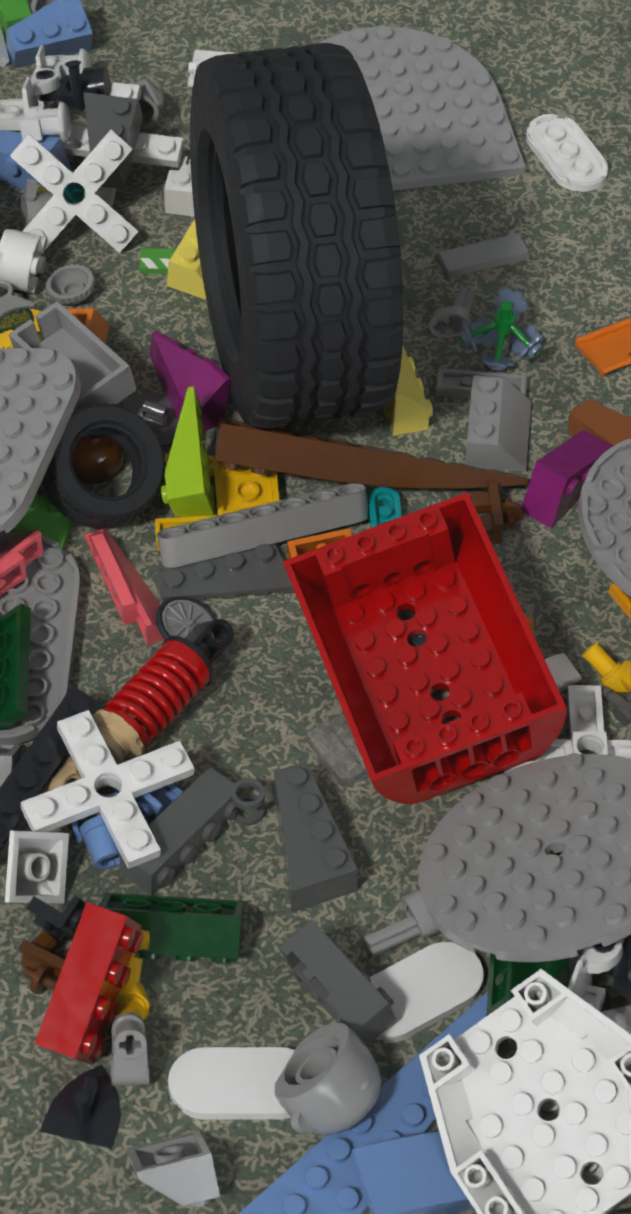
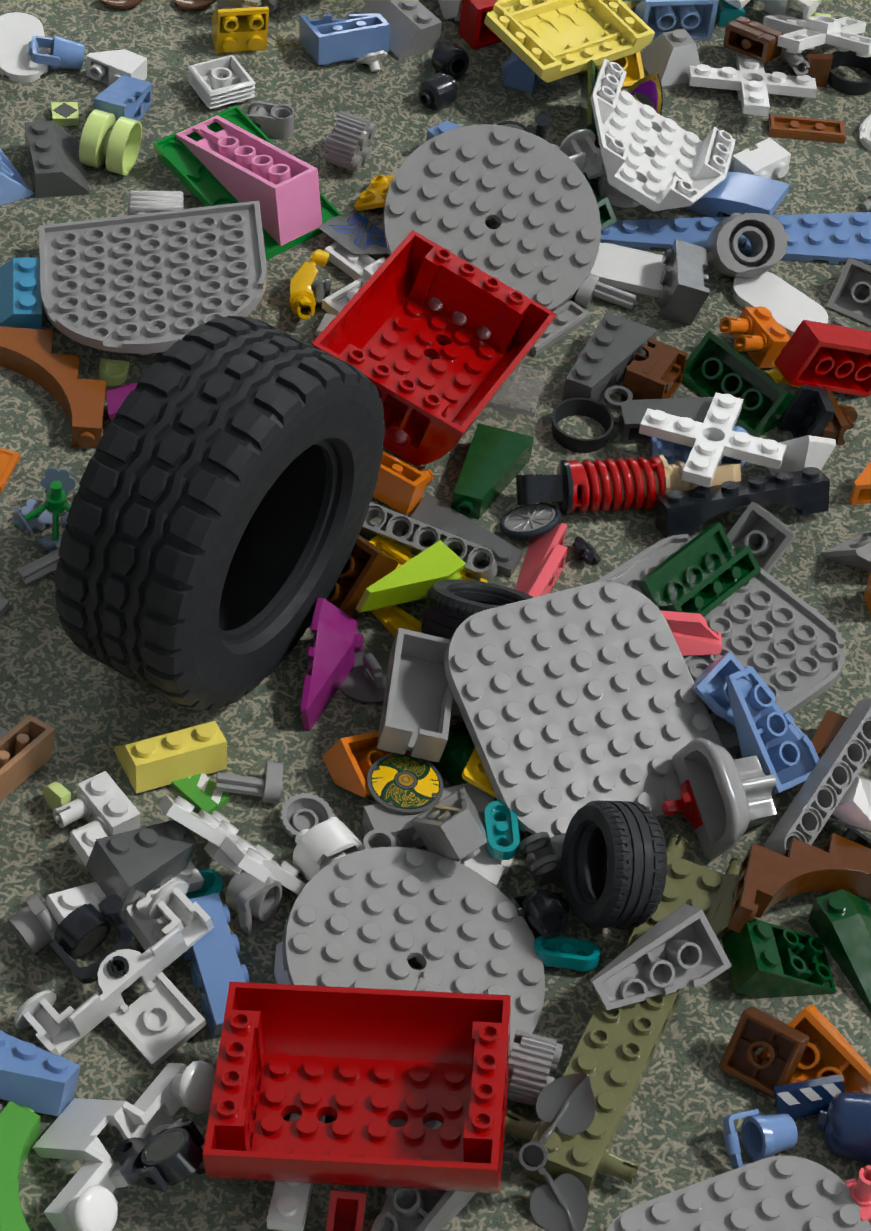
camera: 140 degrees left, 5 degrees down
(117, 642) = (586, 551): none -> black plant
(122, 286) = (268, 788): none -> light grey piece
(205, 995) = (756, 334): none -> orange brick
(243, 852) = (656, 372): none -> reddish brown piece
(248, 732) = (583, 407): none -> black tyre
(276, 644) = (489, 468): none -> dark green slope
(401, 850) = (568, 318): none -> light grey tile

